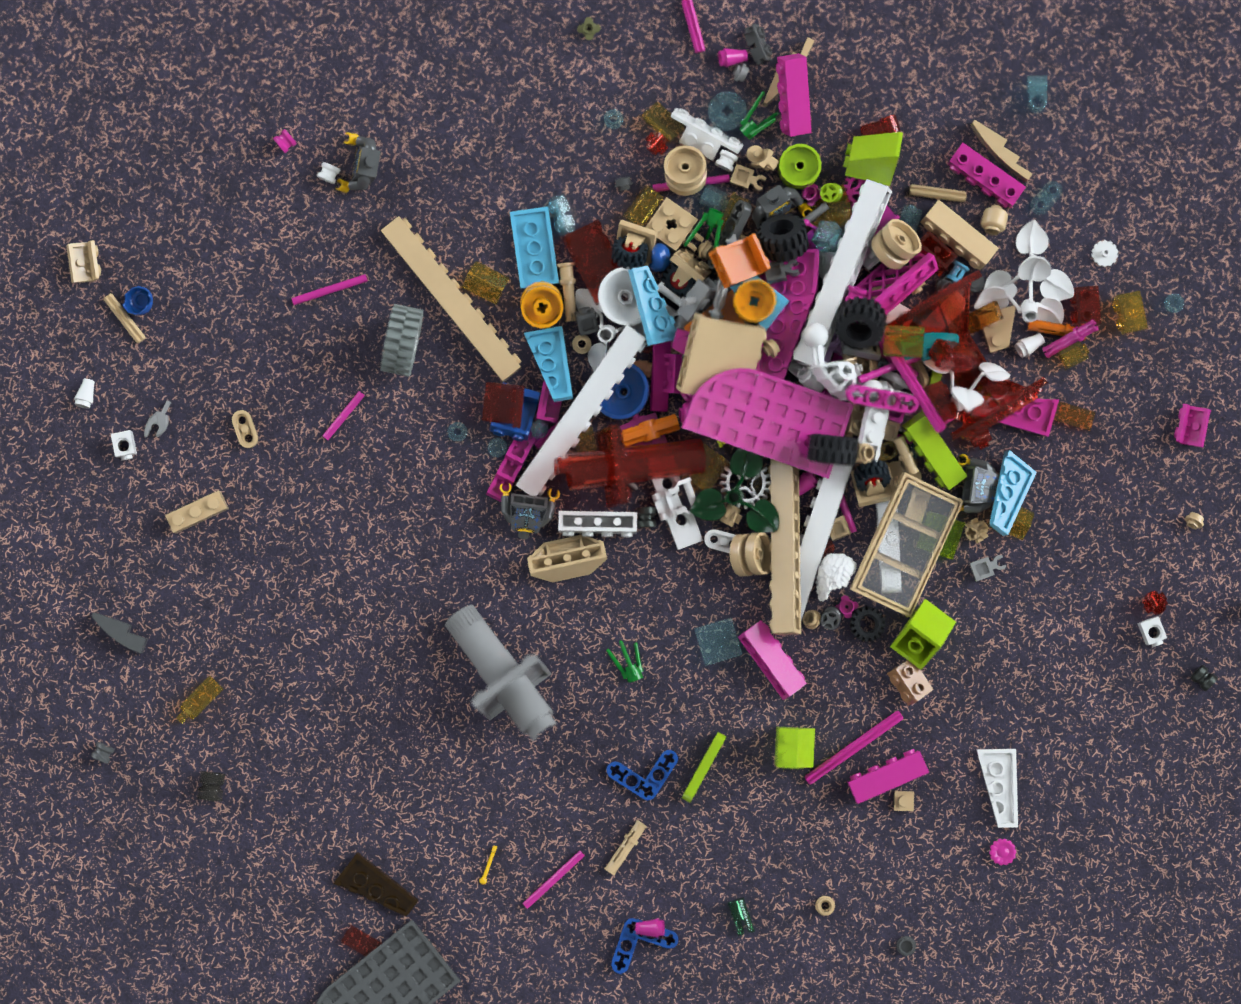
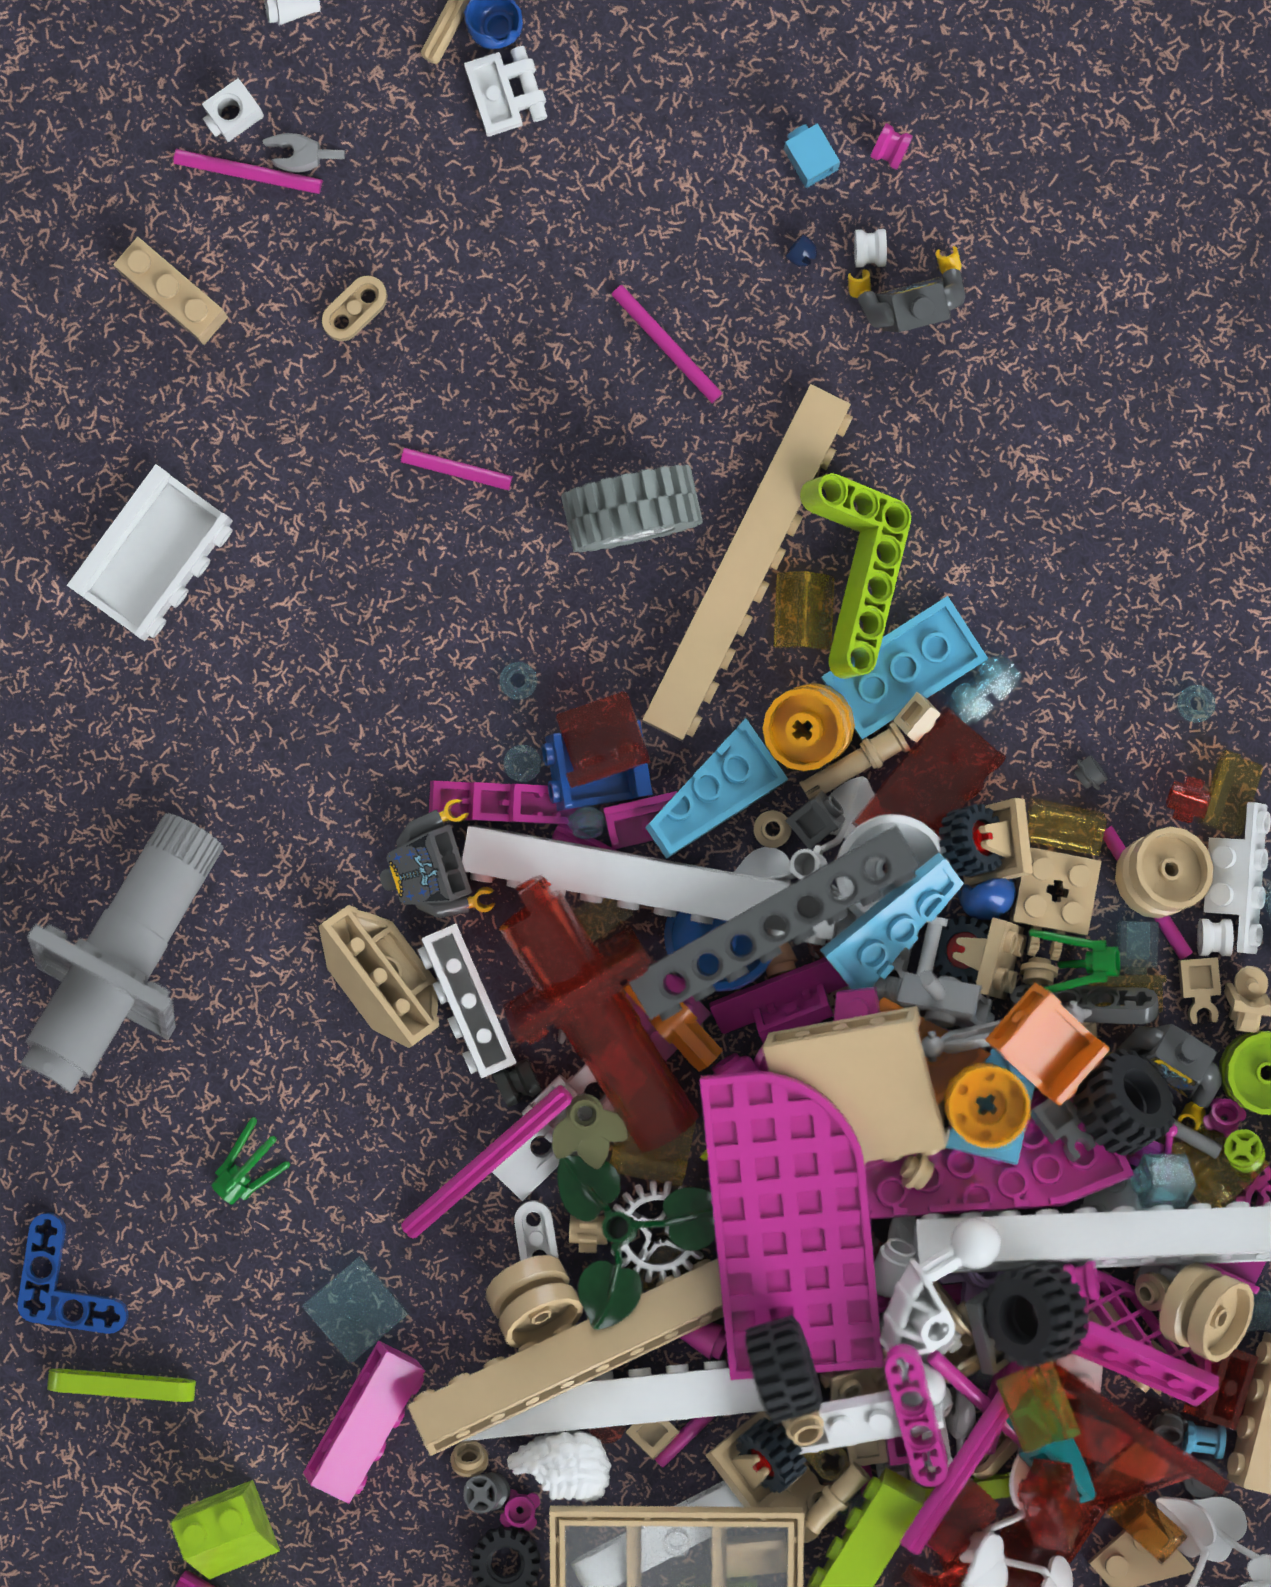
camera: 75 degrees right, 0 degrees up
(155, 451) = (247, 171): none -> dark pink bar
(171, 316) = (494, 94): none -> white plate
(271, 180) = (811, 154): none -> medium azure brick
(315, 205) = (801, 251): none -> dark blue hinge
(318, 577) = (151, 554): none -> white panel
(479, 244) = (866, 565): none -> lime beam
(560, 252) = (917, 717): none -> tan plate
(614, 291) = (661, 1001): none -> dark grey brick
(676, 547) = (487, 1161): none -> dark pink axle
(686, 493) = (588, 1136): none -> olive plate
(875, 266) = (1151, 1290): none -> tan plate

